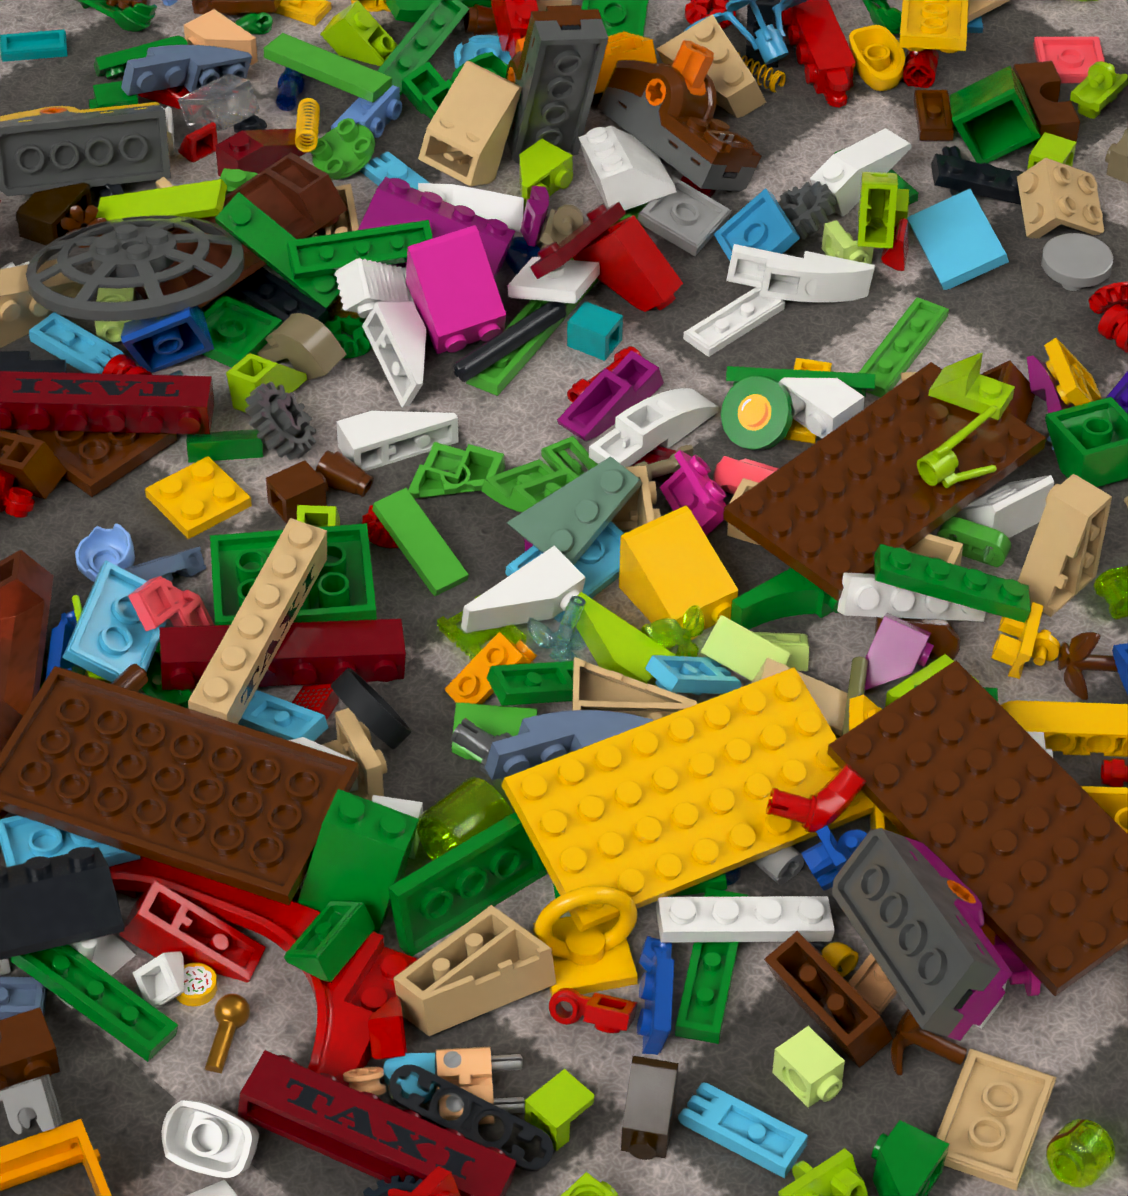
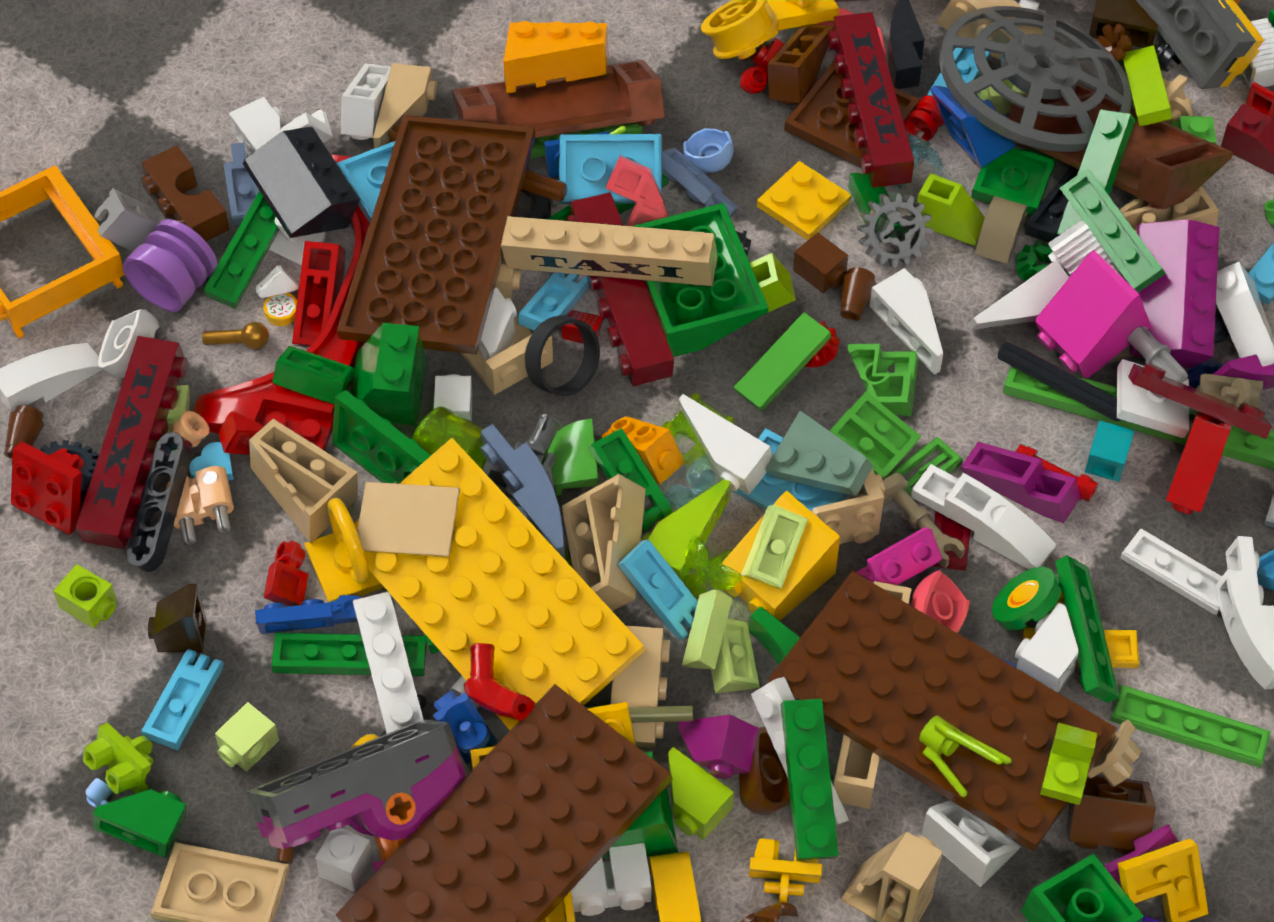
camera: 80 degrees right, 10 degrees up
(110, 1072) = (170, 265): none -> medium lavender wheel
(514, 260) = (1156, 353): none -> light grey axle
(557, 1105) = (181, 559): lime panel -> none
(591, 840) = (408, 518): none -> tan window
(677, 564) = (774, 546): none -> yellowish green slope
(828, 999) = (313, 734): reddish brown brick -> none
(977, 540) = (913, 808): bright green beam -> none

